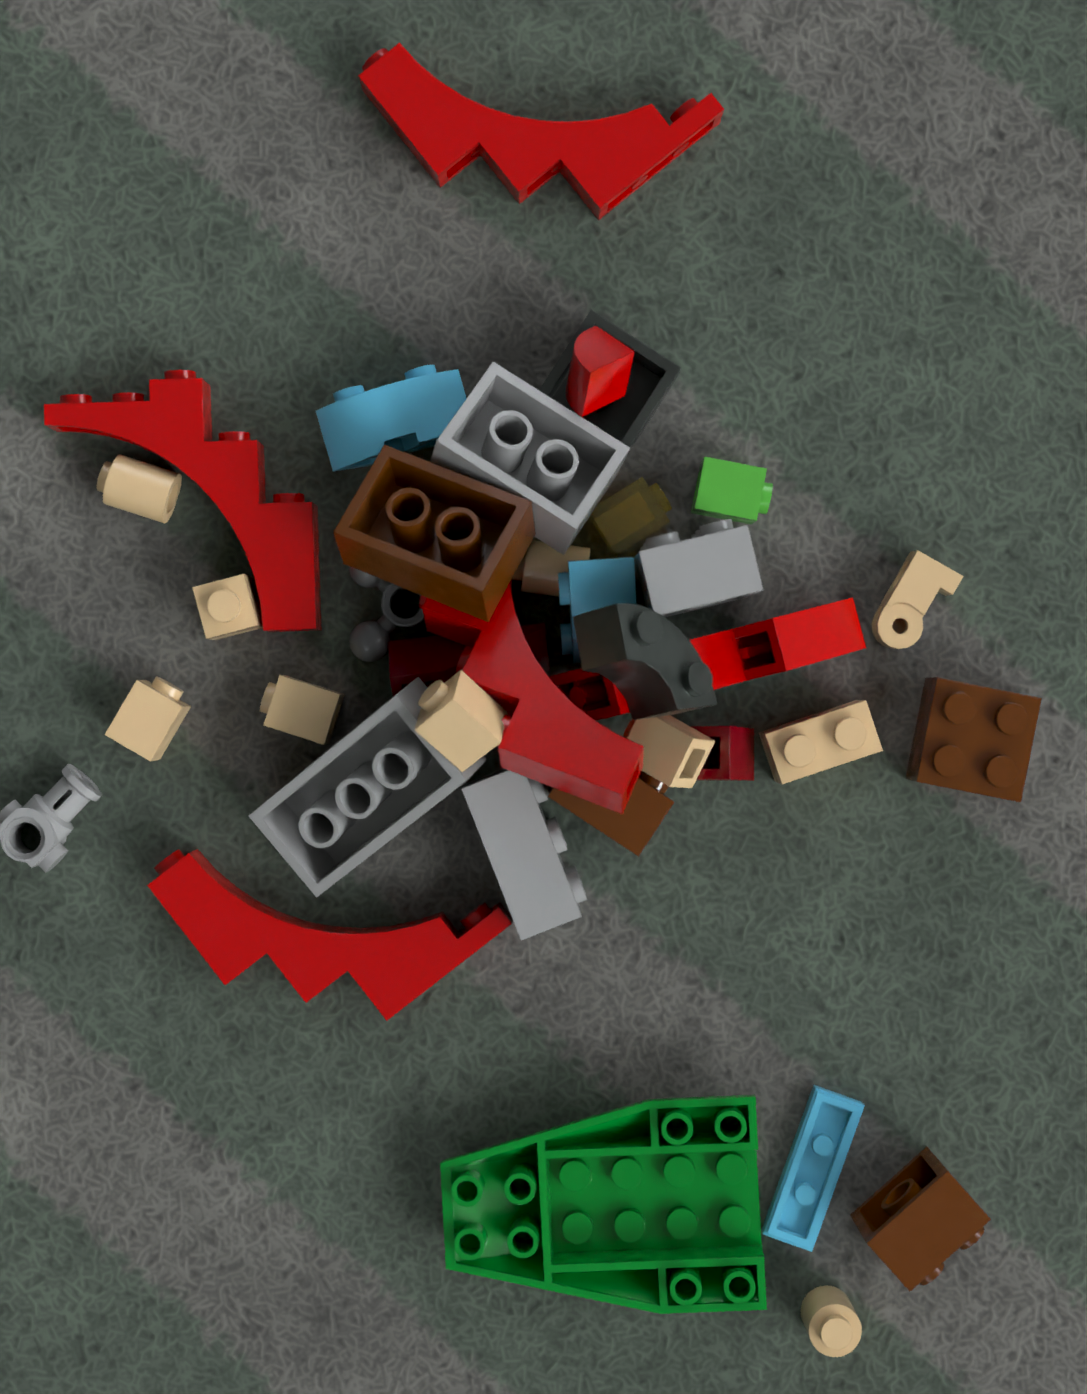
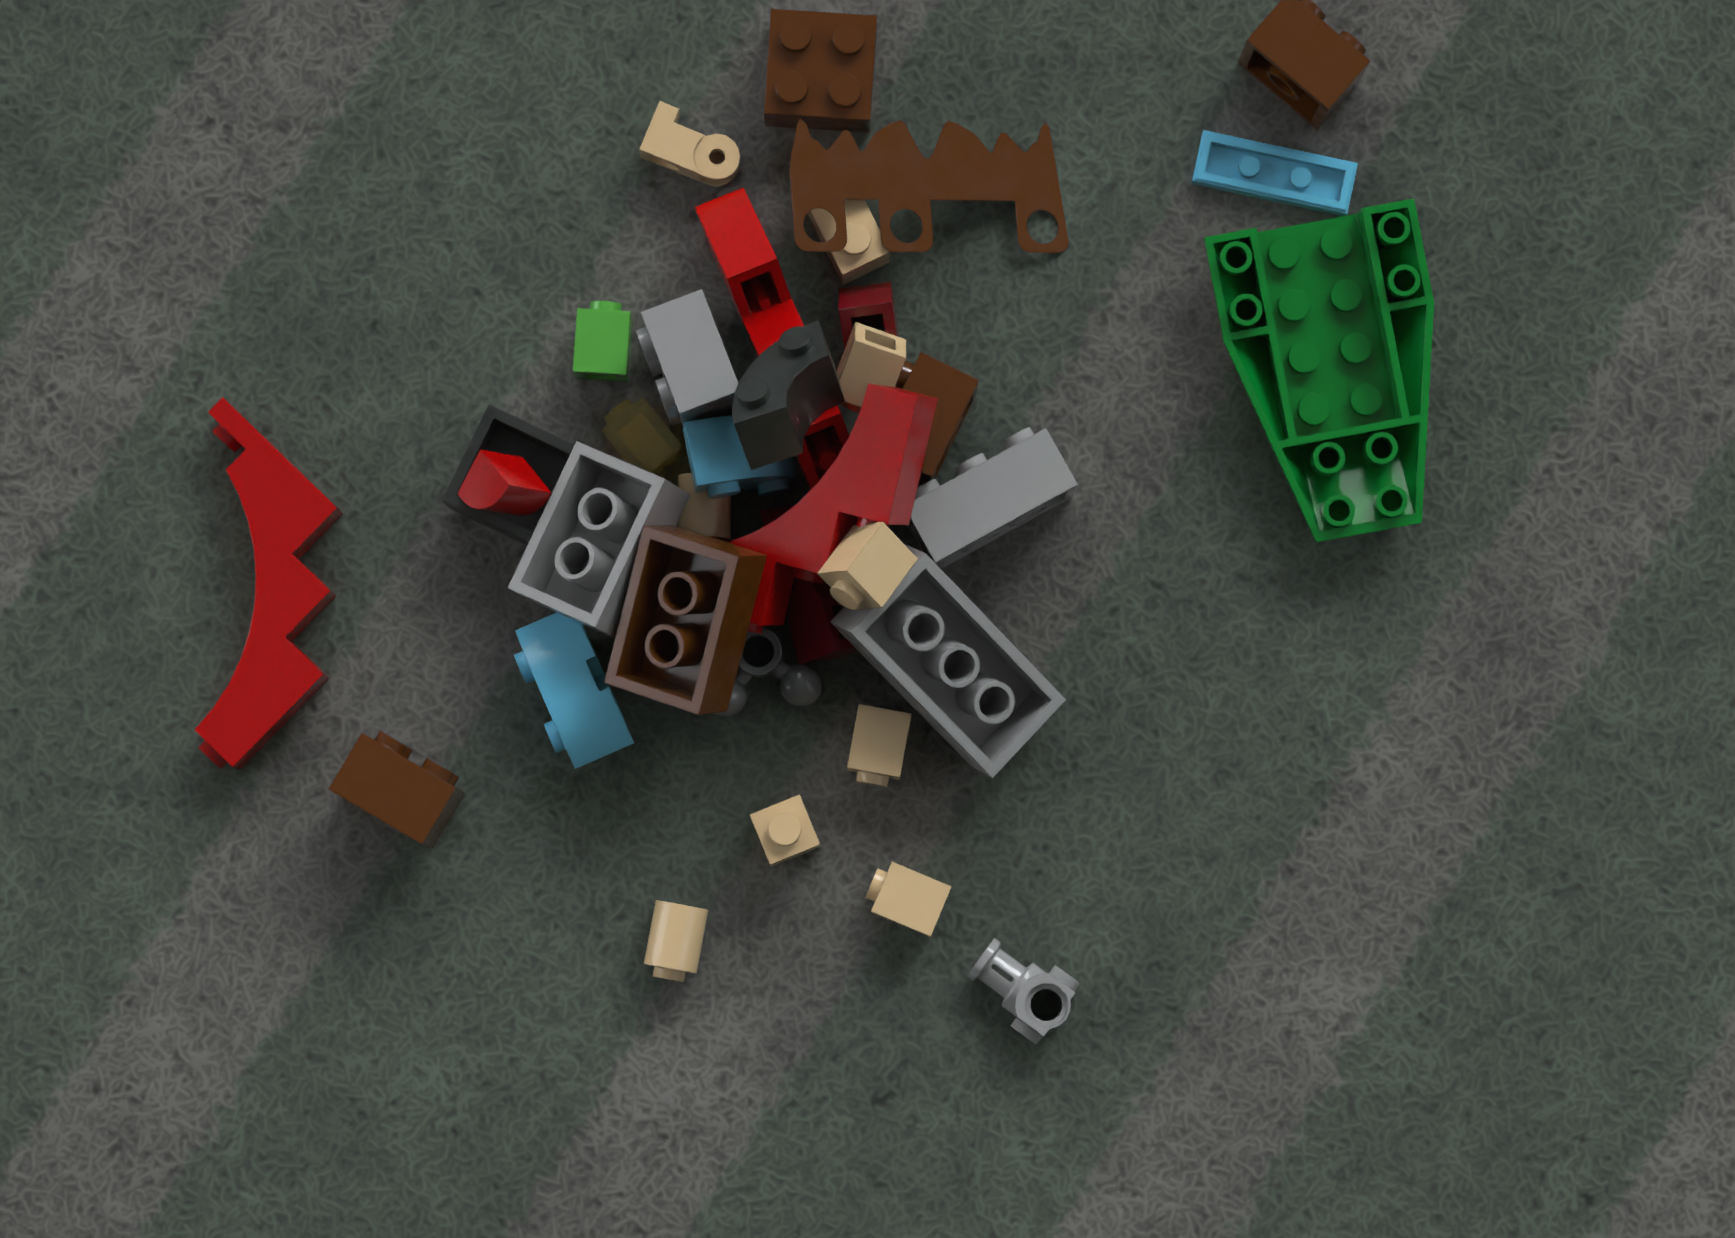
camera: 95 degrees left, 5 degrees down
(177, 425) = (609, 910): red arch -> none
(314, 233) = (396, 789): none -> reddish brown brick
(385, 961) = (1122, 622): red arch -> none
(831, 1321) = (1422, 134): tan brick -> none
(852, 807) = (902, 178): none -> reddish brown piece

